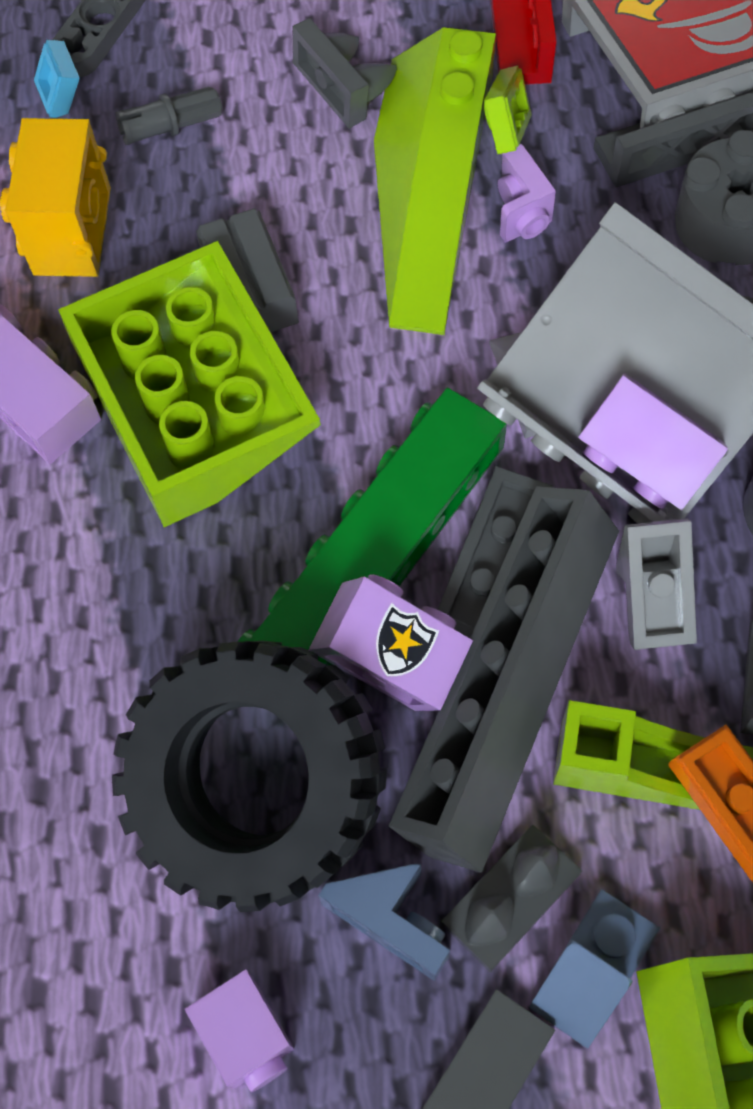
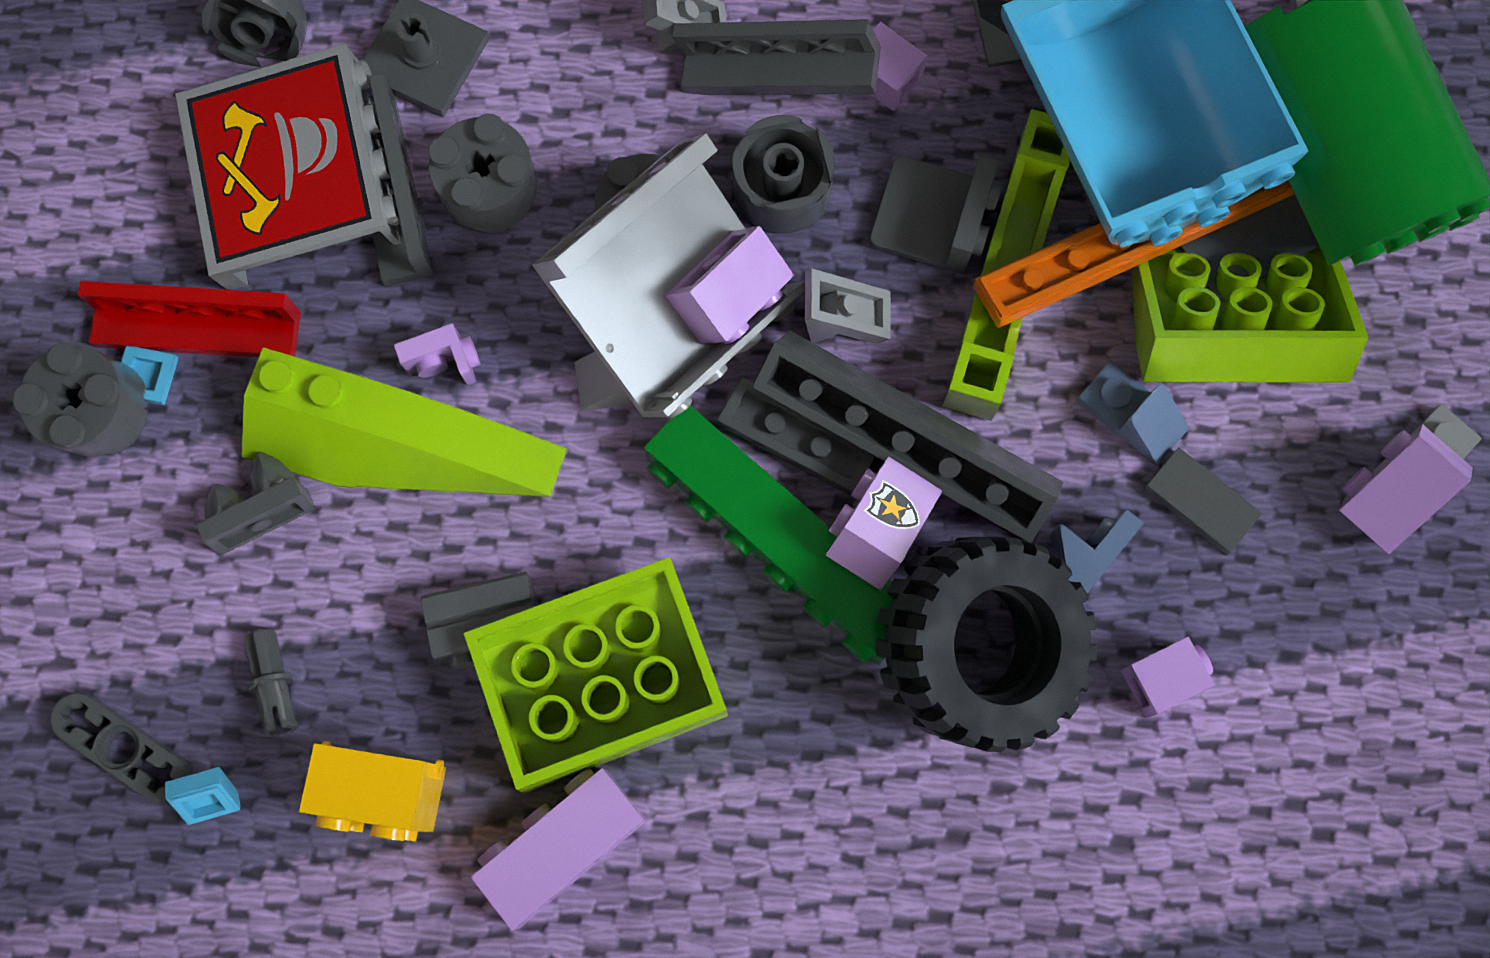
camera: 85 degrees left, 10 degrees up
(507, 109) = (350, 353): lime plate -> none
(511, 898) = (1078, 462): dark grey tile -> none

